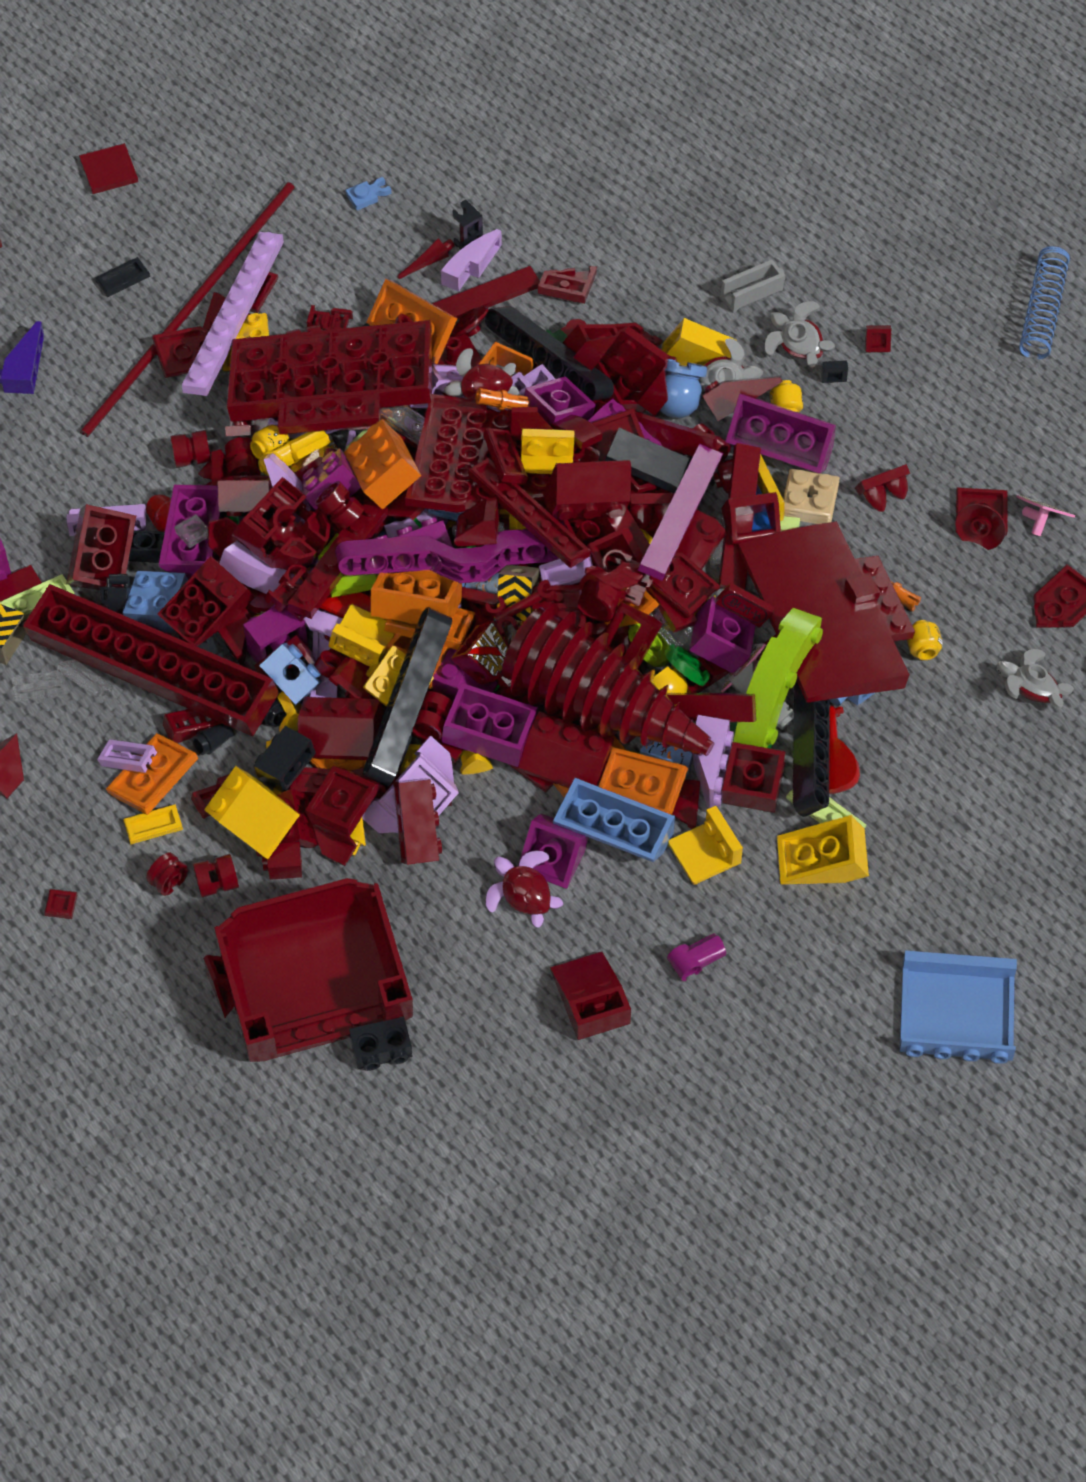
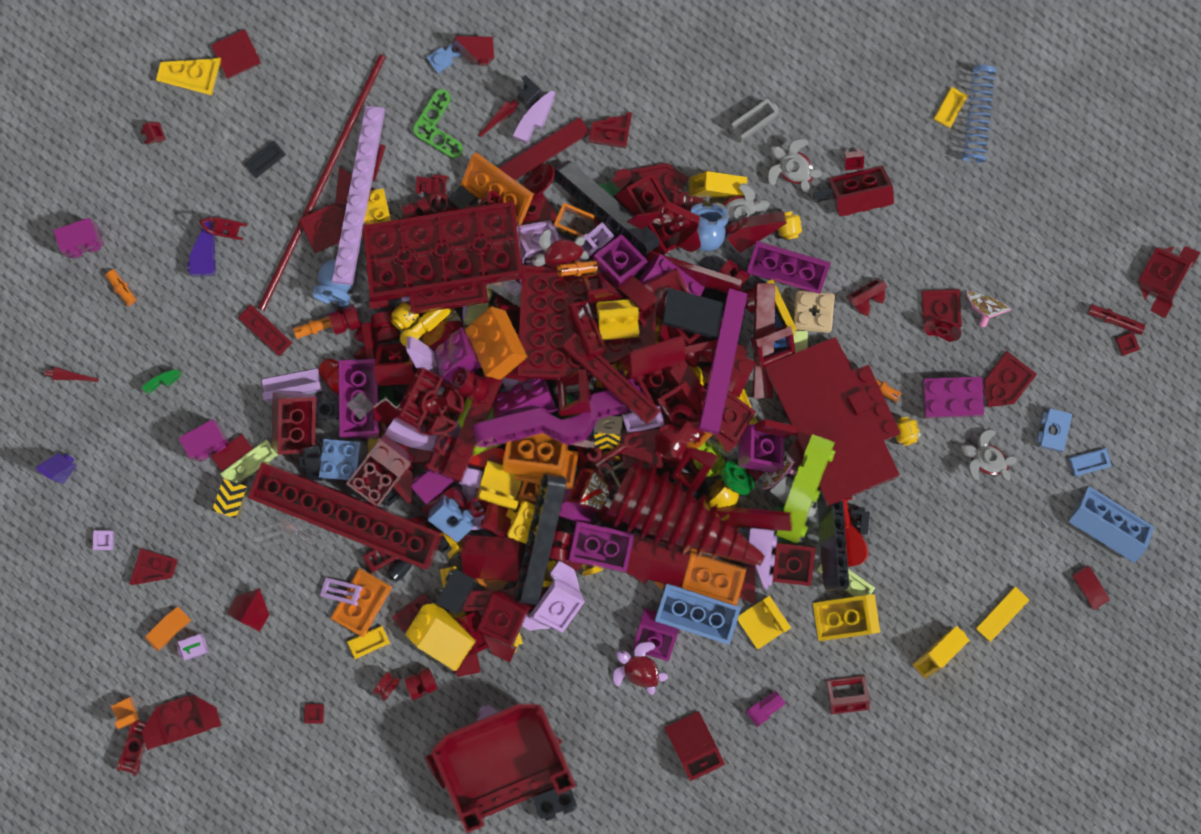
camera: 10 degrees left, 25 degrees up
(49, 331) = (218, 226): none -> dark red piece
(50, 184) = (192, 75): none -> yellow wing
(85, 456) = (265, 330): none -> dark red tile
(148, 457) = (312, 327): none -> orange pin
(182, 411) = (327, 290): none -> medium blue tile
(340, 263) = (431, 123): none -> bright green beam
(407, 182) = (476, 49): none -> dark red slope
(417, 821) = (558, 630): dark red brick -> none
(816, 960) = (849, 703): none -> dark red tile
(854, 732) = (863, 523): none -> black bracket
(886, 373) = (861, 191): none -> dark red slope
(951, 907) = (941, 652): none -> yellow slope
(957, 1006) = (948, 729): medium blue panel -> none
(989, 607) = (952, 397): none -> magenta brick
(1008, 297) = (950, 107): none -> yellow tile
(1043, 874) = (1002, 614): none -> yellow tile

